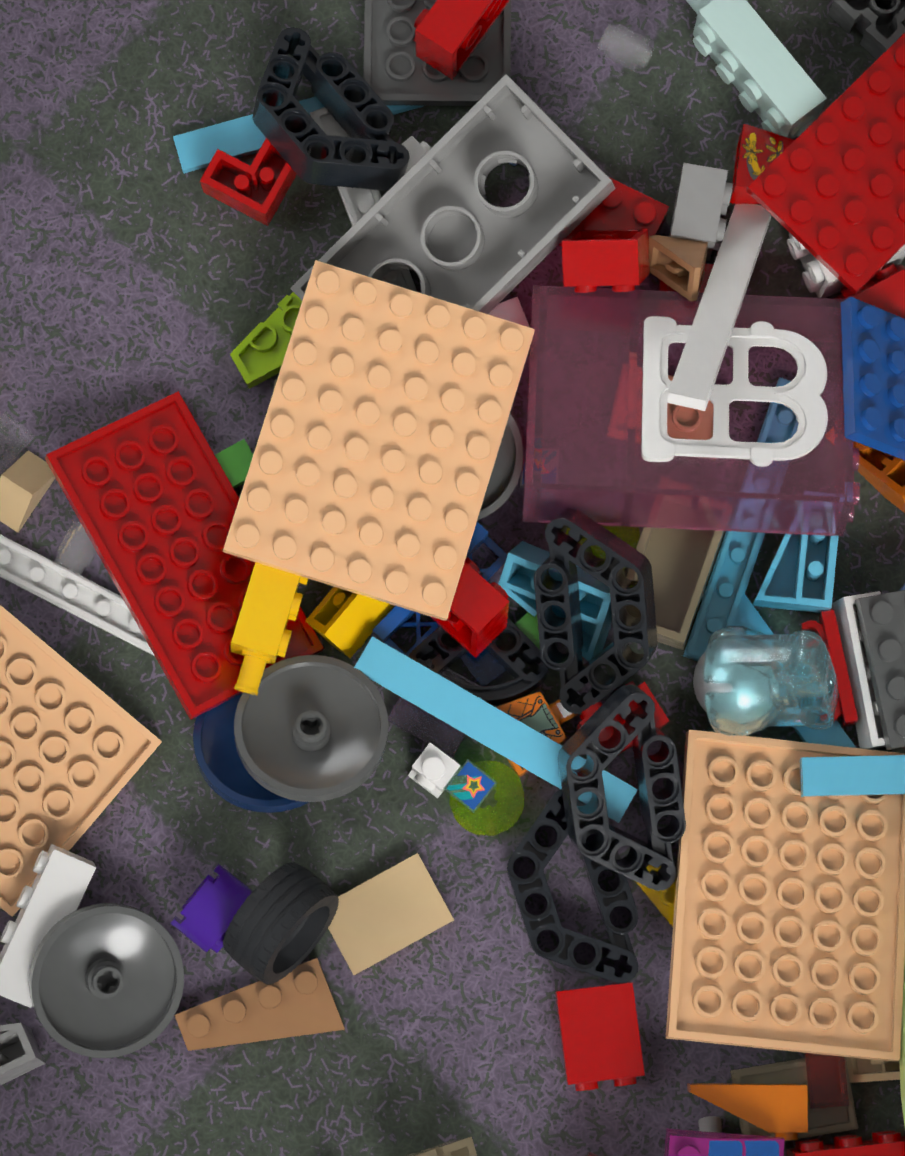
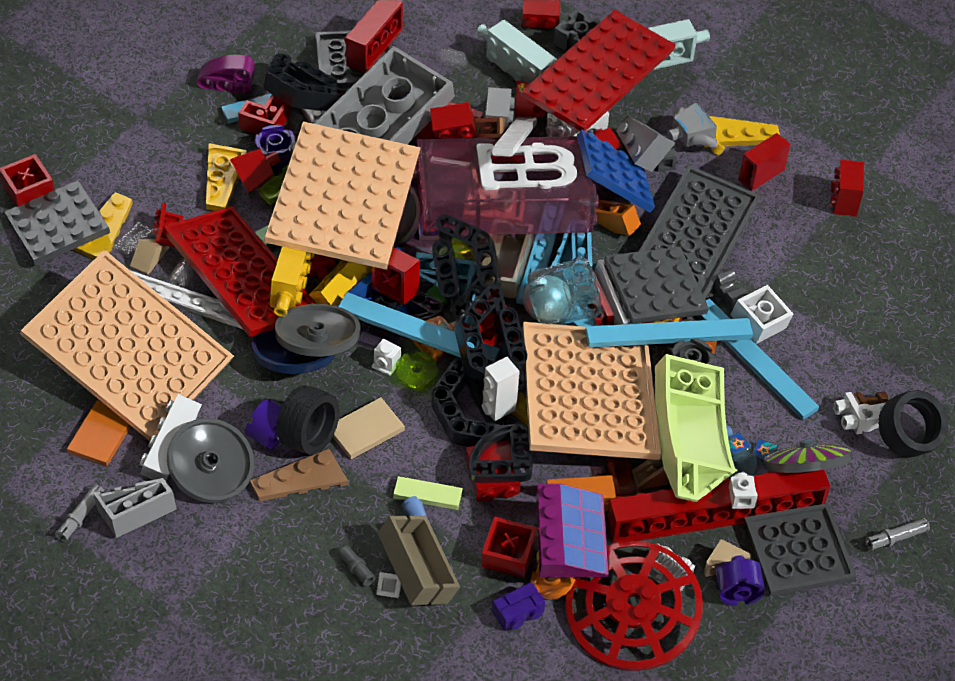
camera: 10 degrees left, 30 degrees down
(57, 426) = (164, 218): none -> red bracket
(167, 303) = (221, 176): none -> yellow wing
(188, 64) = (228, 73): none -> magenta beam
(222, 317) = (255, 168): none -> red torso
(248, 249) = (276, 139): none -> dark purple brick
(456, 1106) = (413, 507): none -> medium blue cone
(470, 786) = (407, 360): tile -> none
(482, 1063) = (428, 492): none -> yellowish green tile
(626, 910) = (500, 389): none -> white brick
(641, 1036) = (516, 462): none -> black beam

